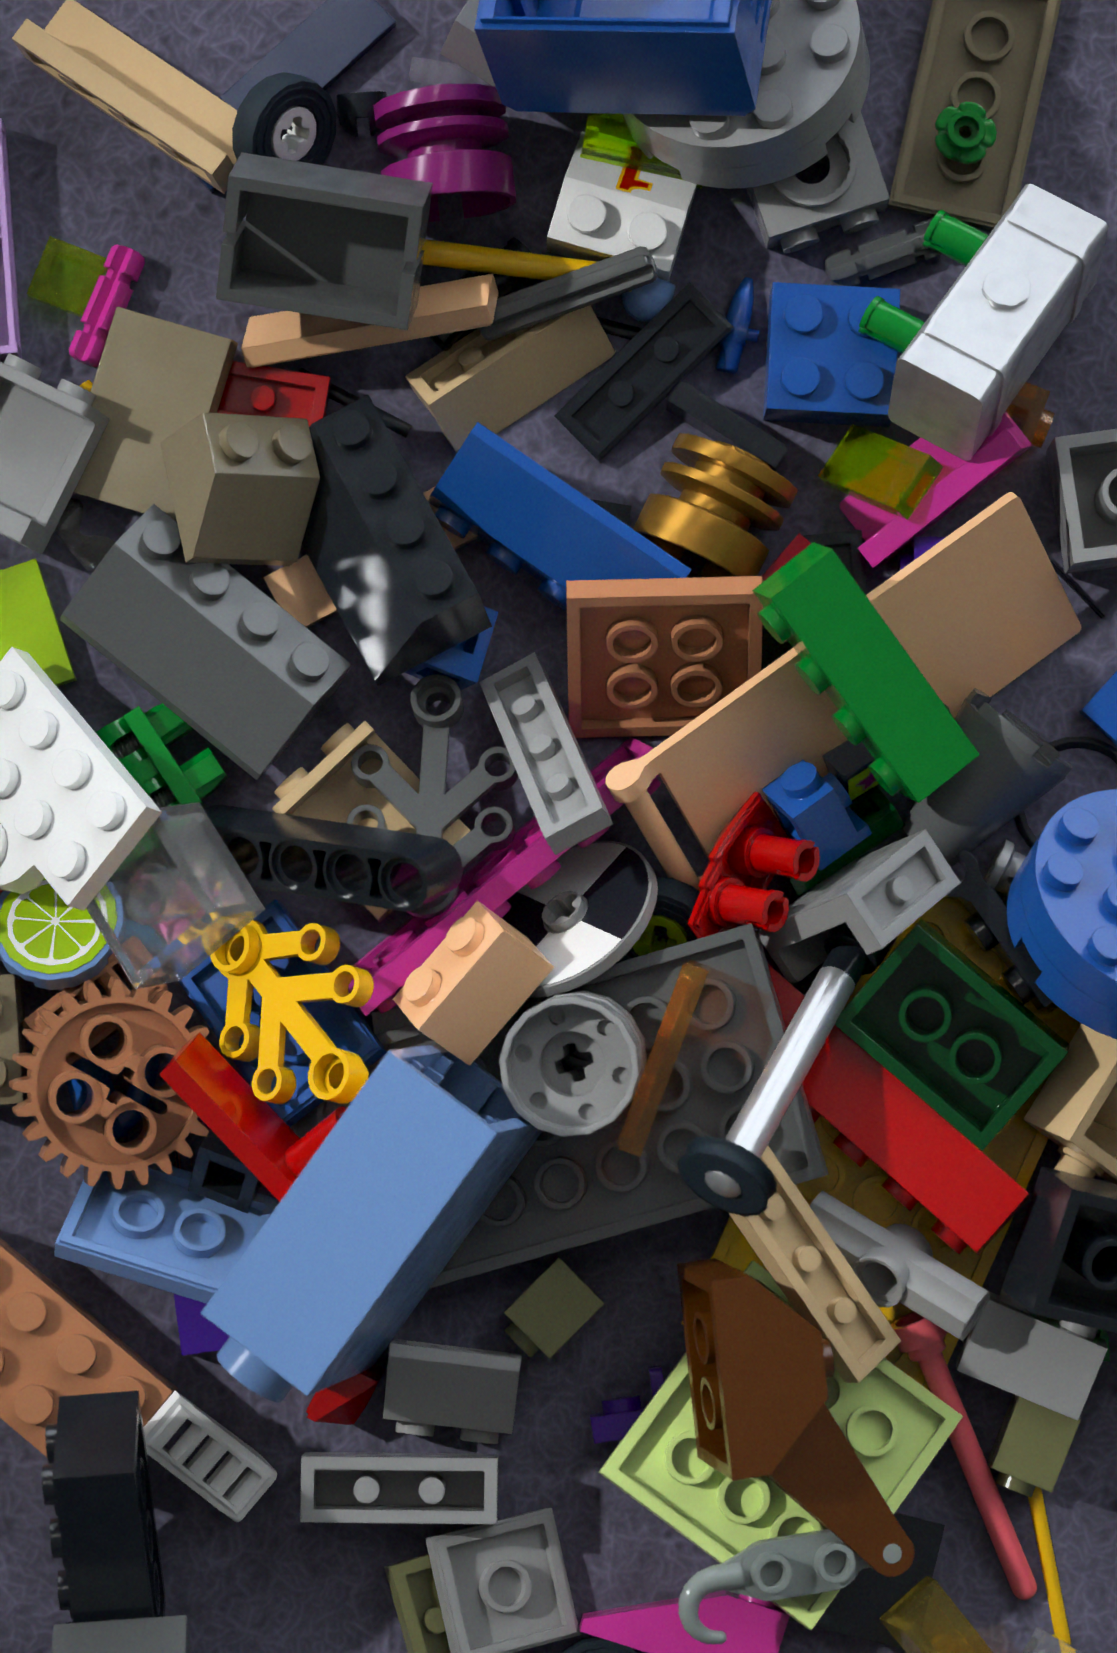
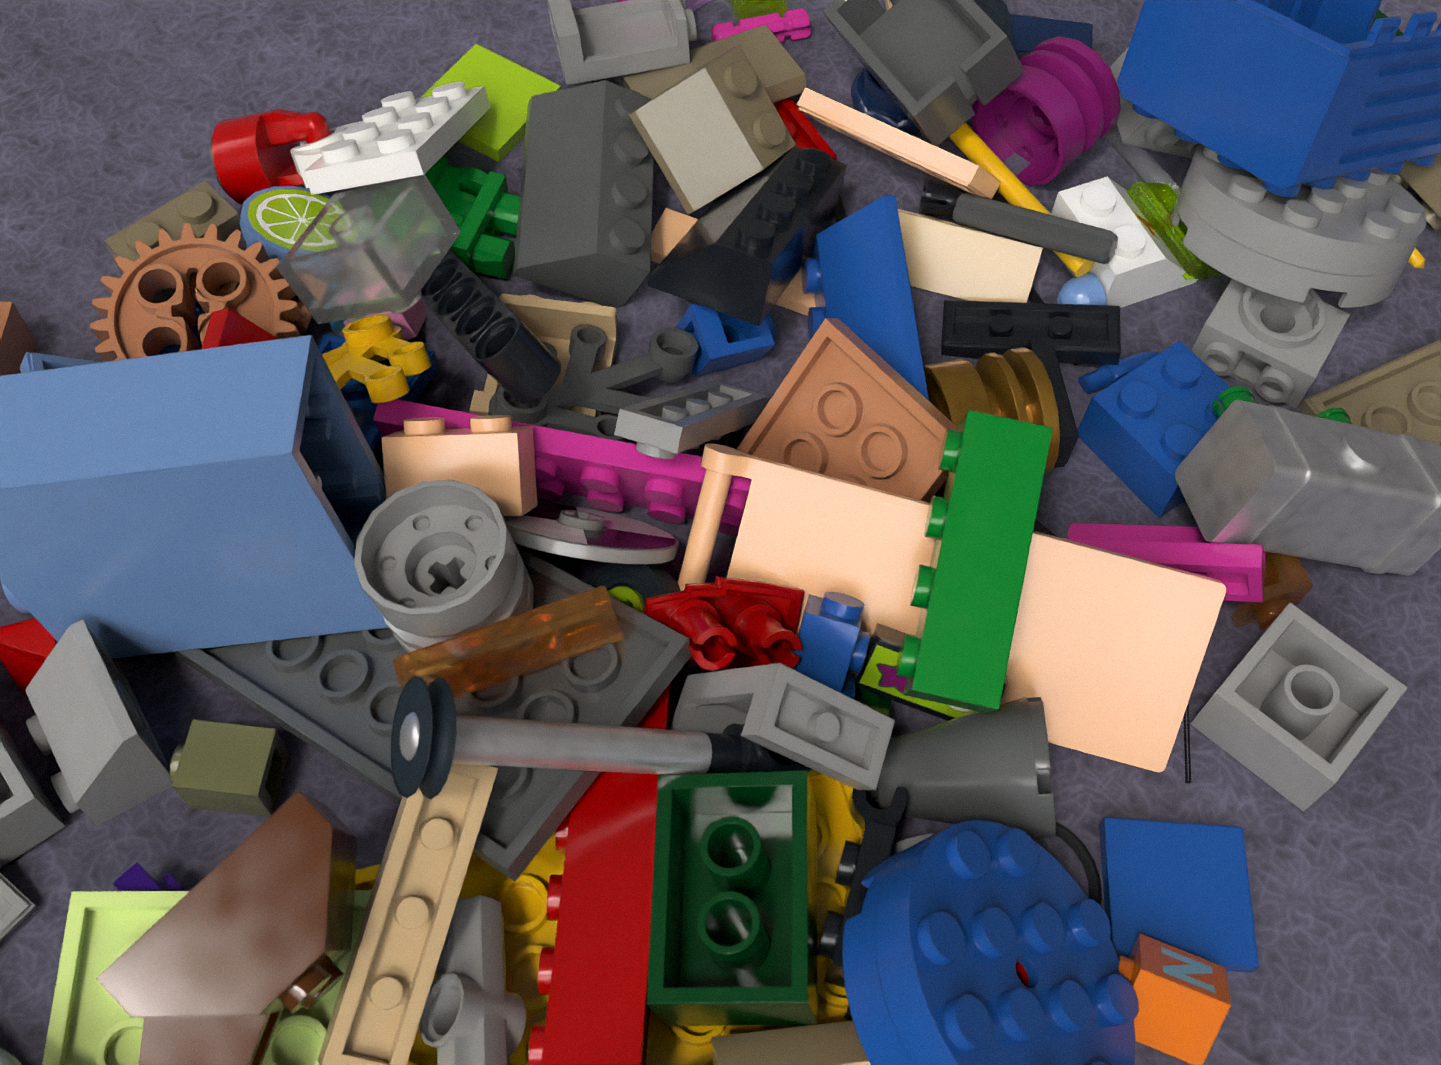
camera: 50 degrees right, 25 degrees down
(880, 471) = (1130, 515): clear neon green tile -> none
(962, 149) = (1407, 403): green plate -> none

